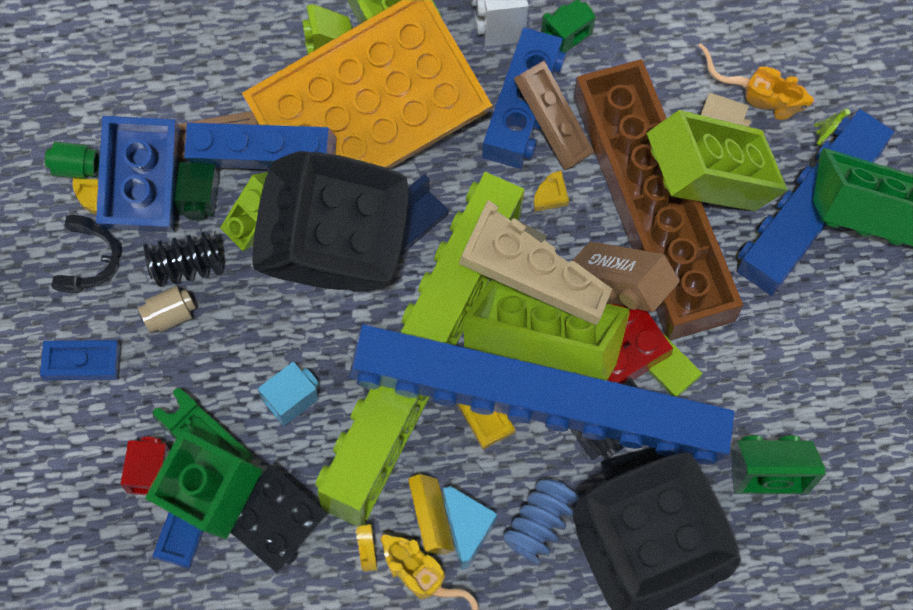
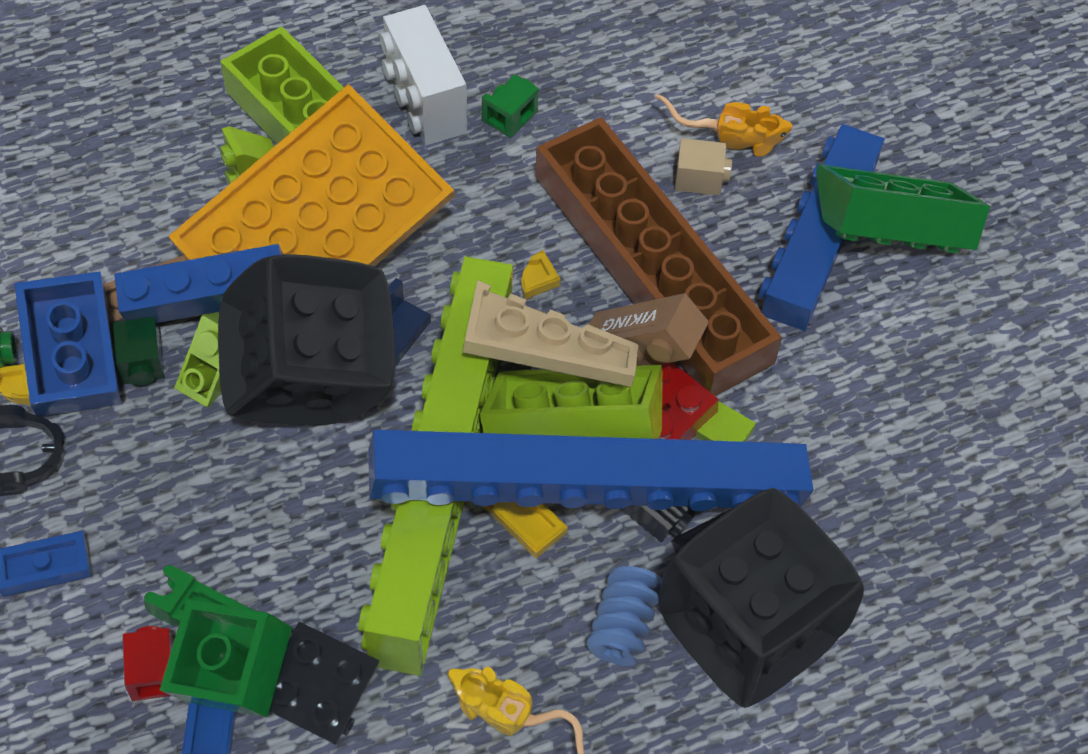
camera: 15 degrees left, 10 degrees down
(167, 309) = (134, 485): tan brick -> none
(184, 259) = (141, 425): black piece -> none
(289, 393) = (299, 544): medium azure brick -> none
(366, 548) = (432, 692): yellow tile -> none
(431, 514) = (498, 638): yellow tile -> none
(468, 523) = (542, 638): medium azure slope -> none
(501, 142) = (481, 186): blue brick -> none
(554, 115) = (521, 192): medium nougat tile -> none
(716, 161) = (709, 198): lime brick -> none
(775, 466) = (865, 499): green slope -> none
(830, 124) = (815, 148): lime piece -> none

